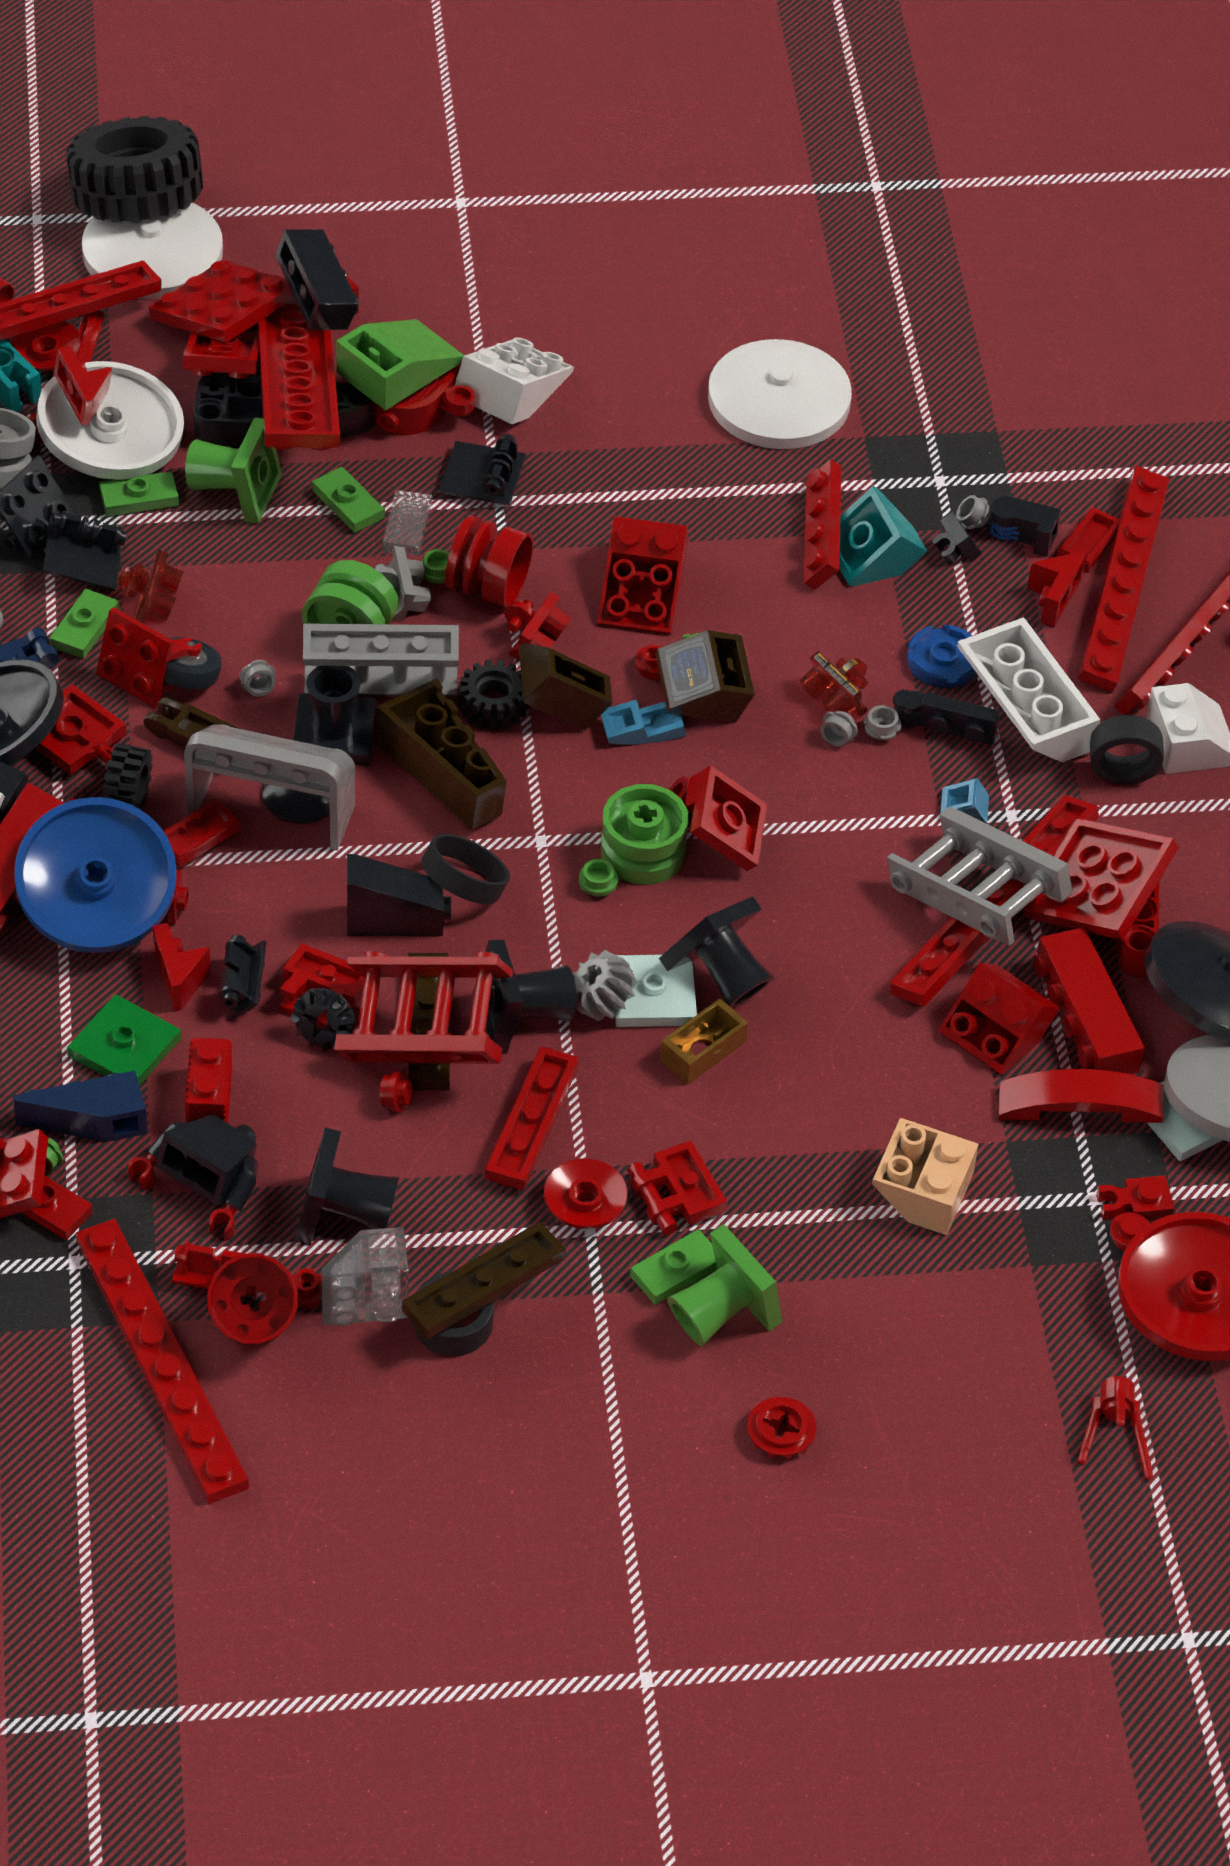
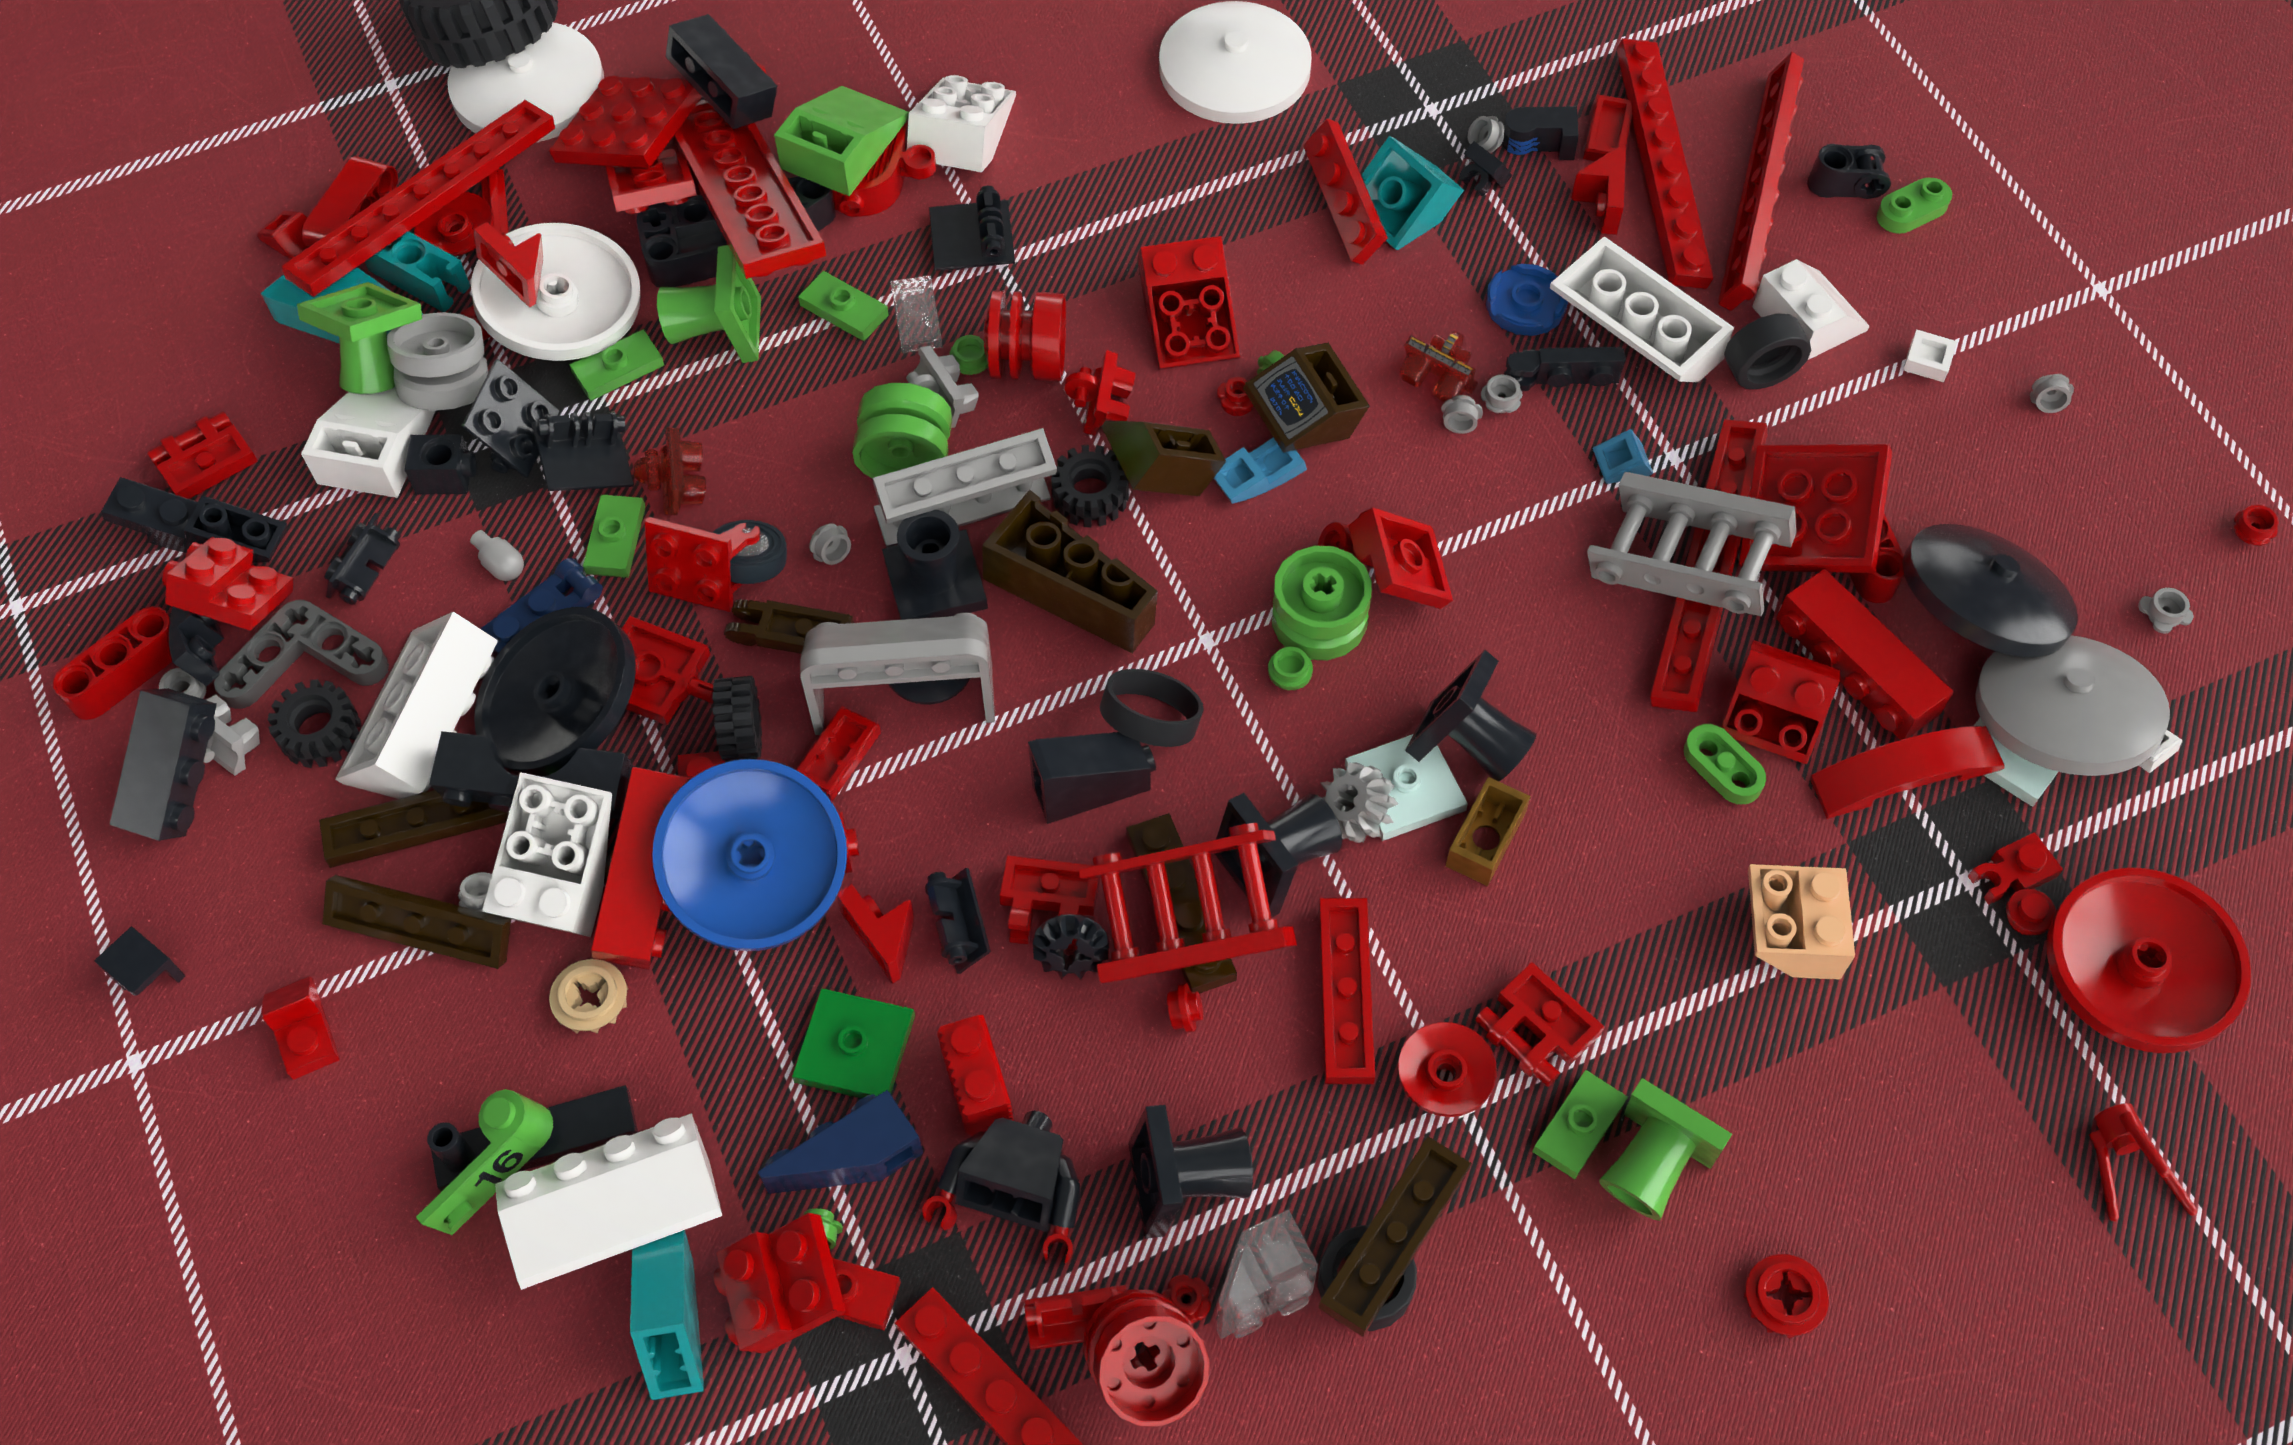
camera: 15 degrees left, 10 degrees up
(931, 1053) = (1727, 764): none -> bright green plate

